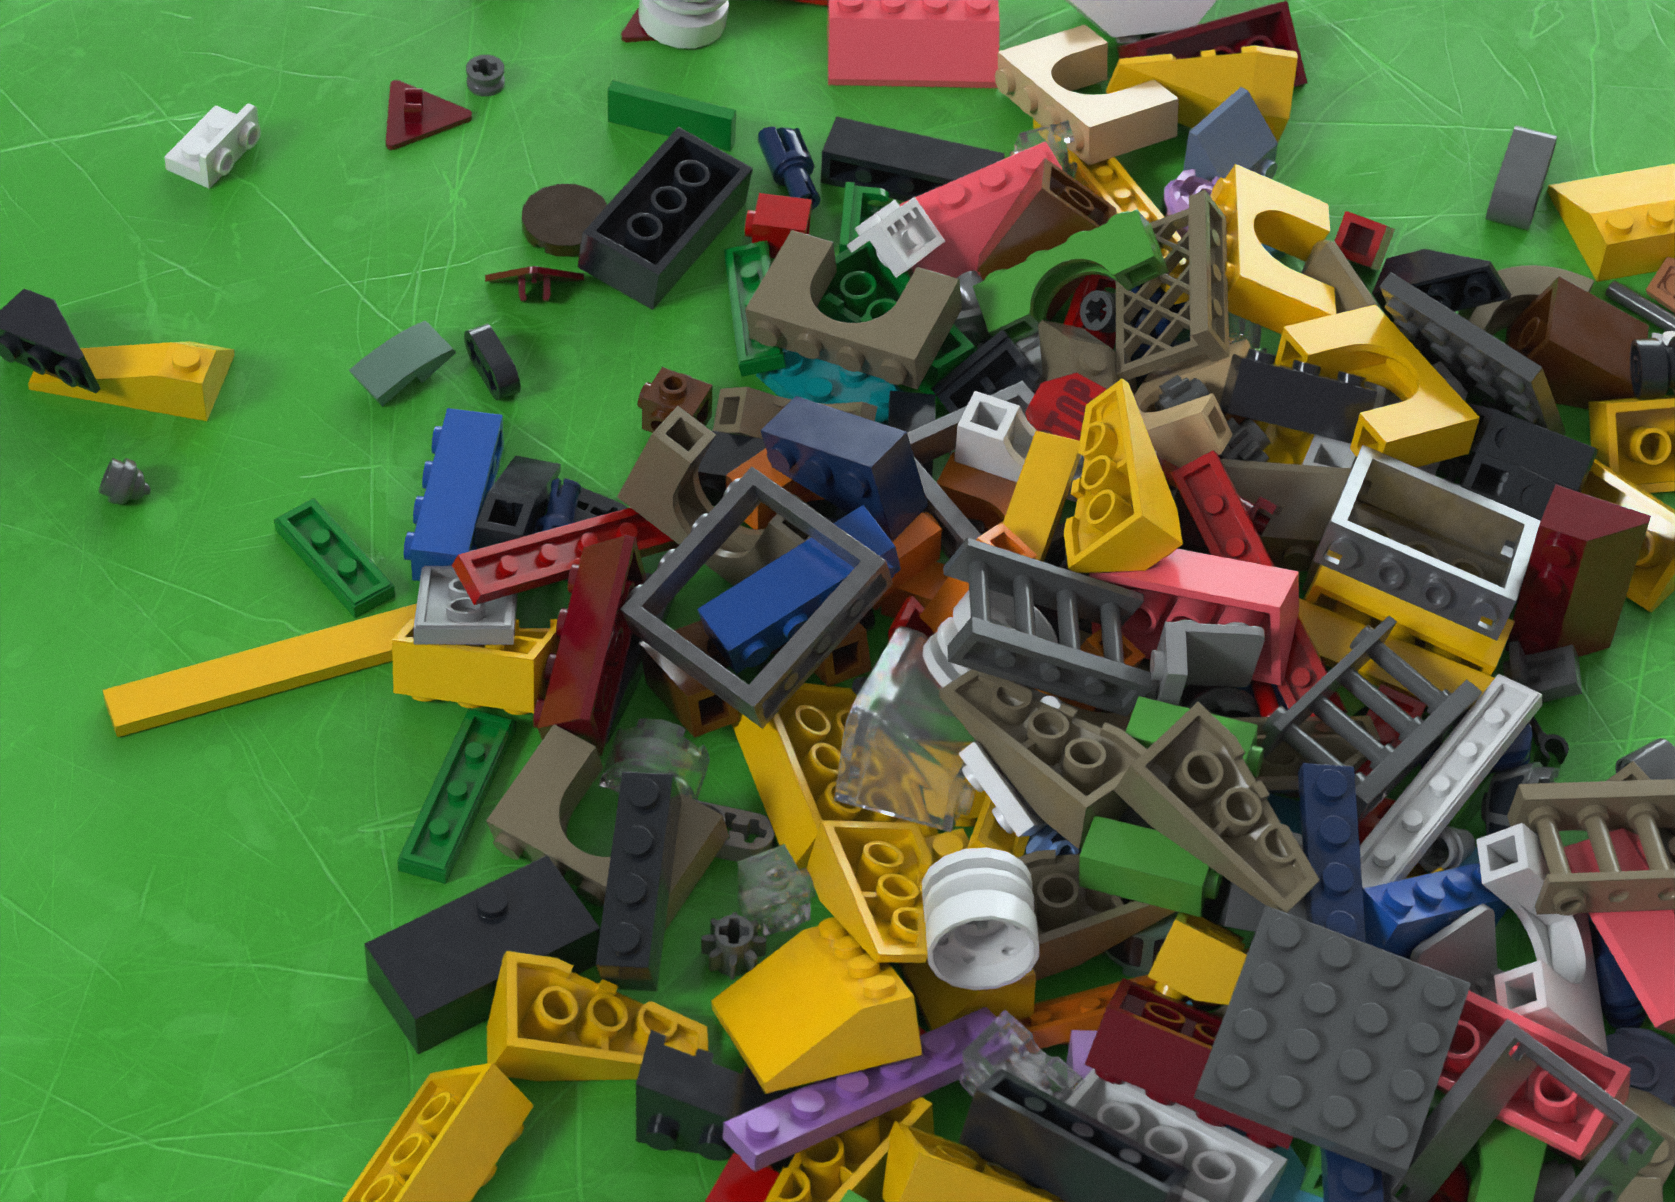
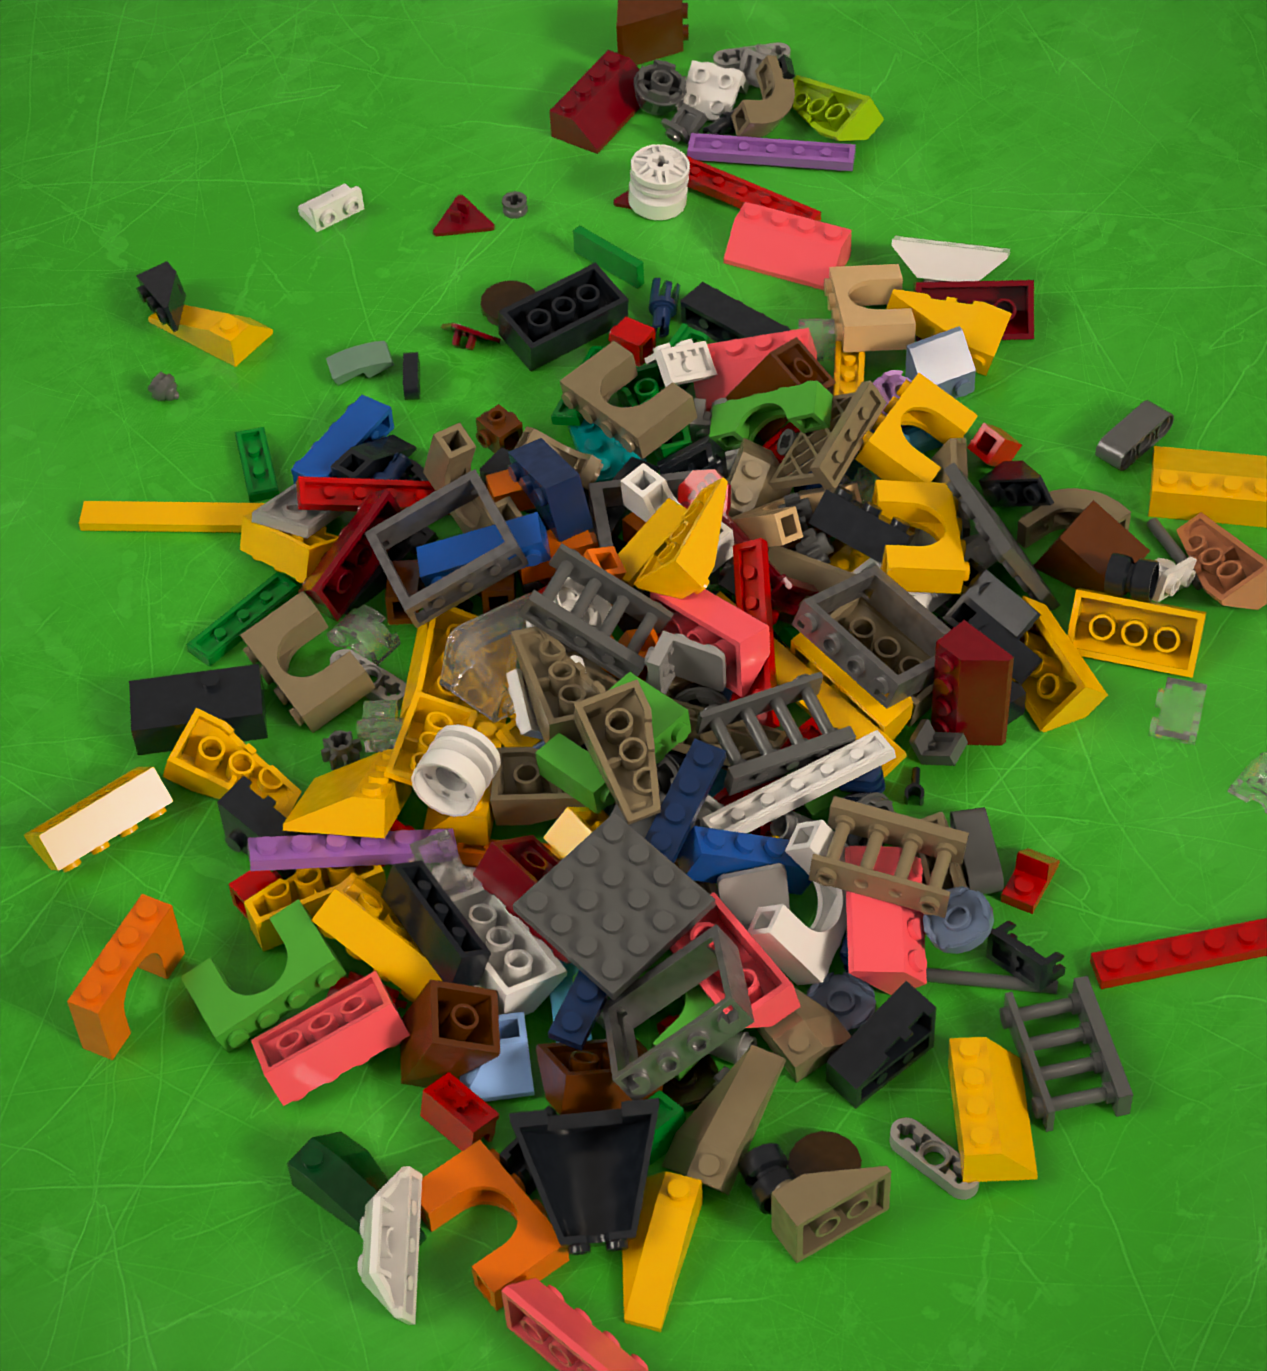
camera: 30 degrees right, 0 degrees up
(639, 881) = (294, 692): black brick -> none

